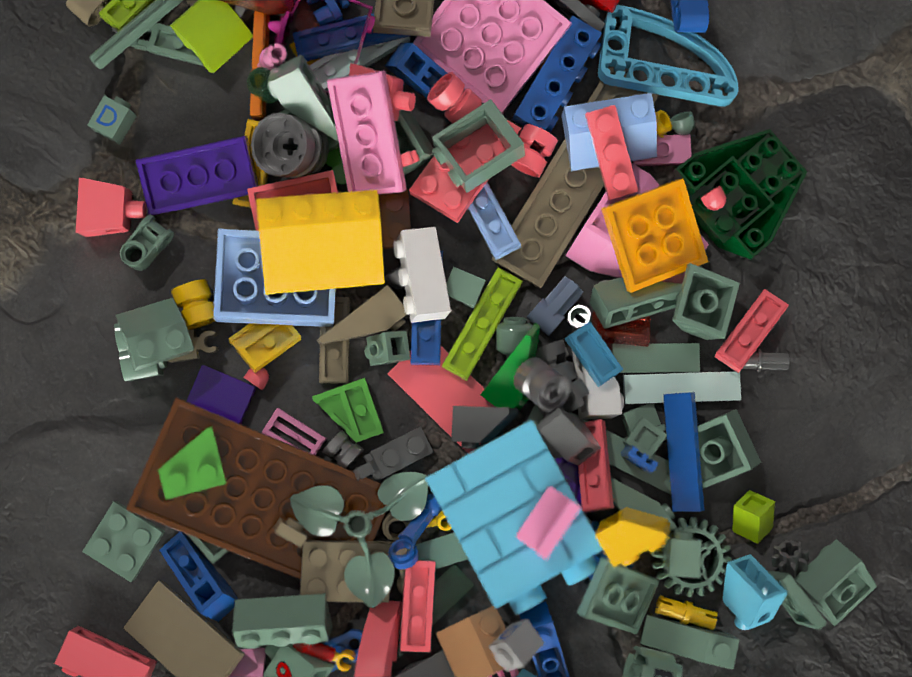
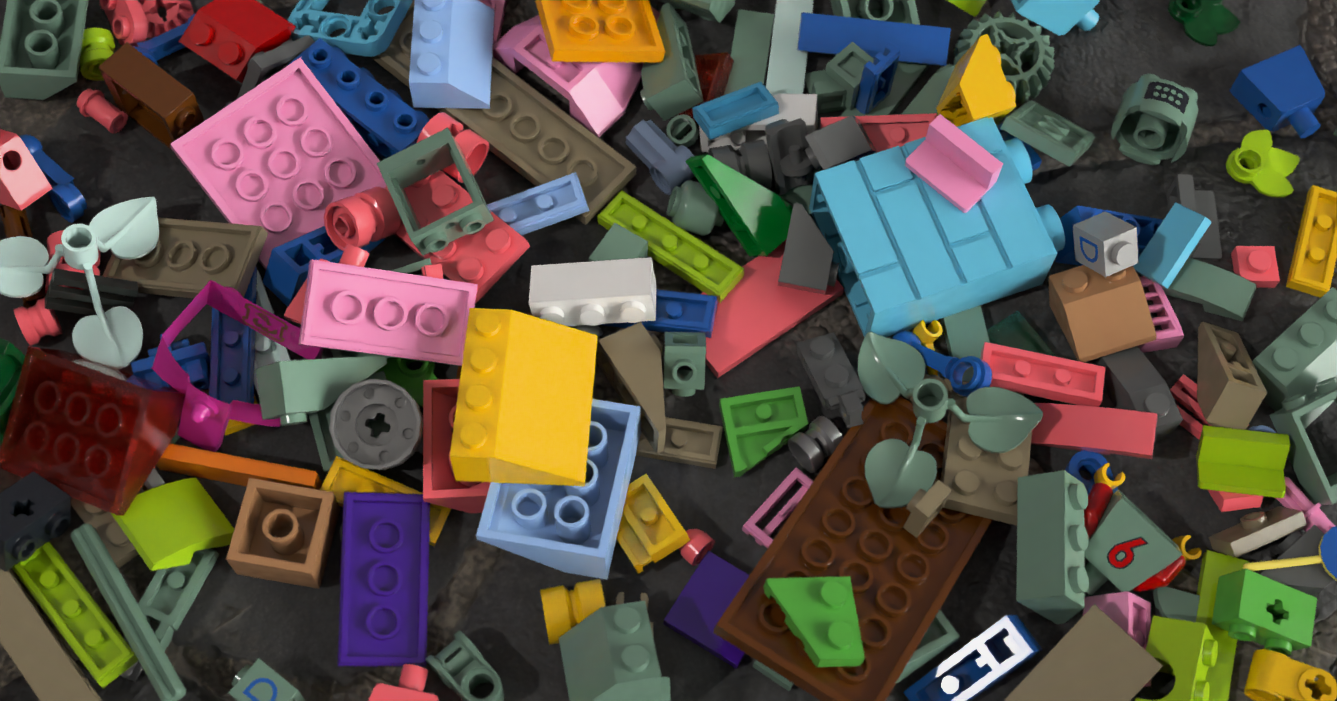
camera: 90 degrees left, 20 degrees down
(216, 103) = (283, 533): none -> medium nougat brick
(257, 84) = (270, 439): clear green brick -> none
(272, 56) = (245, 425): bright pink axle -> none
(542, 384) = (765, 161): flat silver wheel -> none
(611, 152) = (482, 37): coral plate -> none
(683, 555) = (1014, 47): sand green brick -> none
(686, 612) = (1072, 76): yellow pin -> none
(690, 641) = (1109, 75): sand green slope -> none

